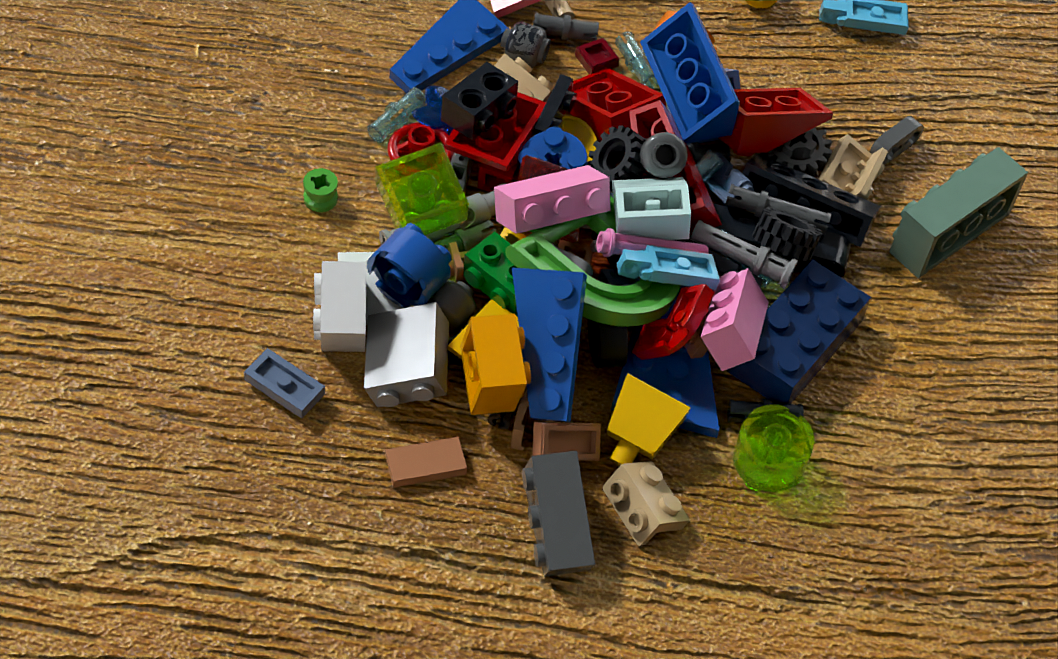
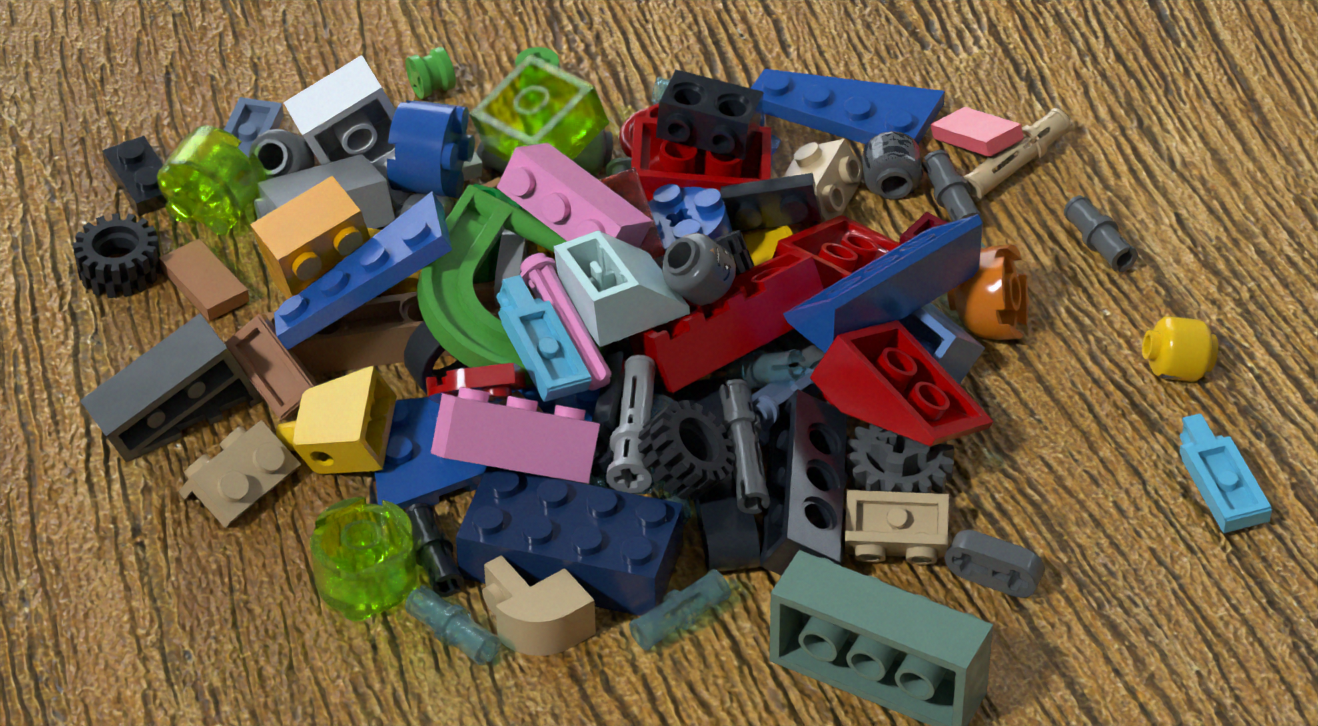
camera: 75 degrees right, 10 degrees down
(283, 249) = (430, 72): none -> bright green wheel
(283, 467) = (135, 171): none -> black plate
(338, 367) = (282, 152): none -> dark grey head
(343, 416) = (210, 179): none -> clear neon green brick
(374, 526) = (116, 237): none -> black tyre
(842, 423) = (452, 625): none -> clear light blue pin
(851, 375) = (538, 617): none -> tan brick
(876, 312) = (655, 625): none -> clear light blue pin

